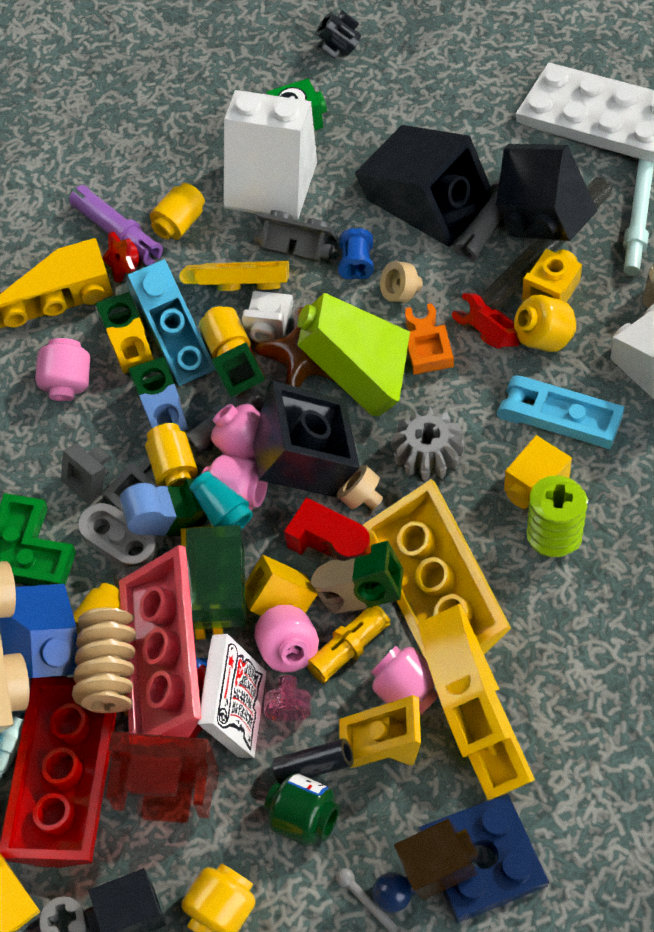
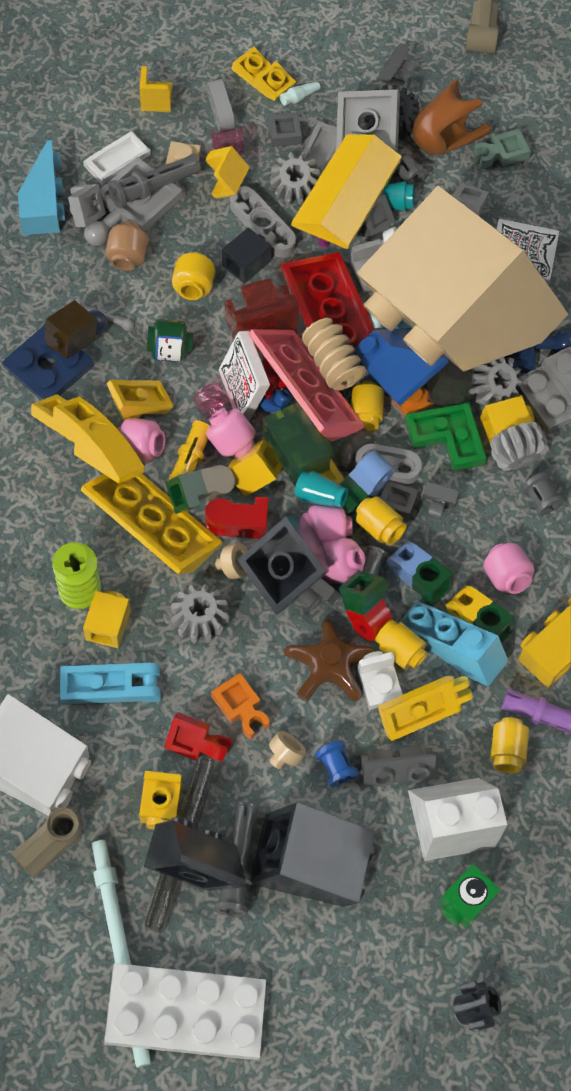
camera: 145 degrees right, 5 degrees up
(121, 256) = (527, 684): red plate -> none
(314, 760) = (176, 370): black axle -> none
(355, 351) = (286, 655): lime slope -> none
(545, 323) = (149, 747): yellow head -> none

